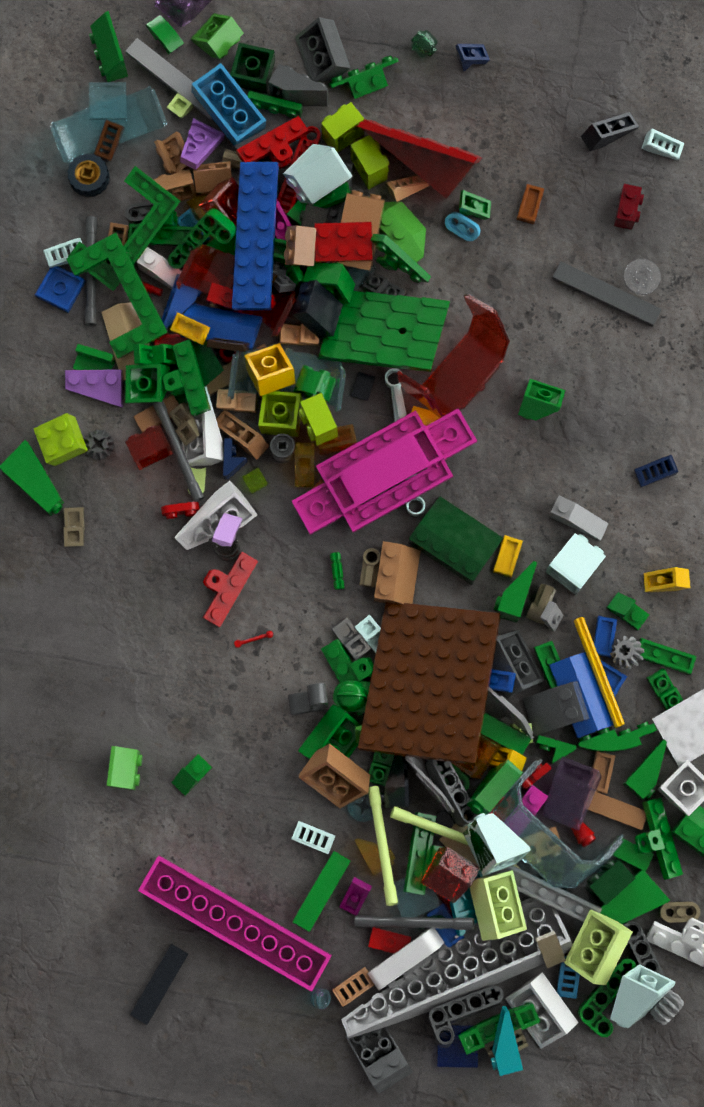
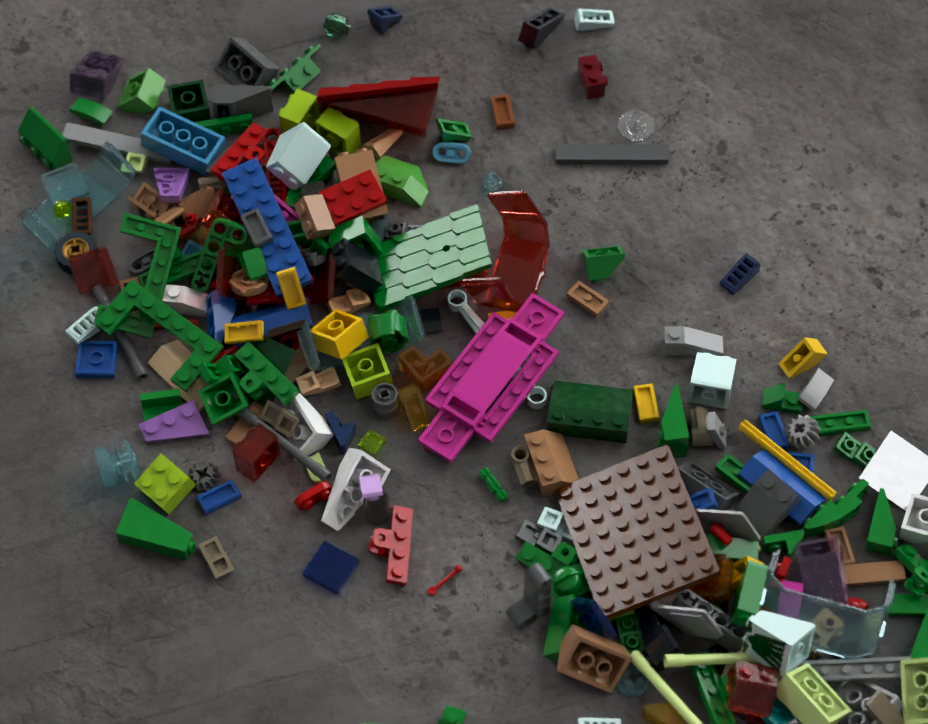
camera: 25 degrees left, 20 degrees down
(29, 401) = (116, 463): none -> clear light blue wheel
(93, 200) = (93, 269): none -> clear red bracket
(94, 125) = (62, 208): none -> clear neon green plate
(102, 470) = (218, 497): none -> blue tile
(164, 581) = (330, 567): none -> clear blue tile
(194, 197) = (189, 225): none -> red arm
(215, 282) = (242, 286): none -> medium nougat tile
(226, 266) = (253, 264): none -> green slope
(242, 434) = (346, 406): medium nougat slope -> none
(243, 235) = (257, 228): none -> dark grey tile
(246, 308) = (291, 288): none -> yellow tile
(318, 418) = (409, 351): lime brick -> none
(353, 743) = (594, 617): none -> tile
(397, 258) = (408, 194): green plate -> none
(484, 273) = (493, 180): none -> clear light blue tile
(499, 716) = (718, 530): none -> red arm
(508, 431) = (587, 299): none -> medium nougat plate
(609, 882) = (902, 631): dark green brick -> none
(662, 616) = (816, 389): none -> light grey slope

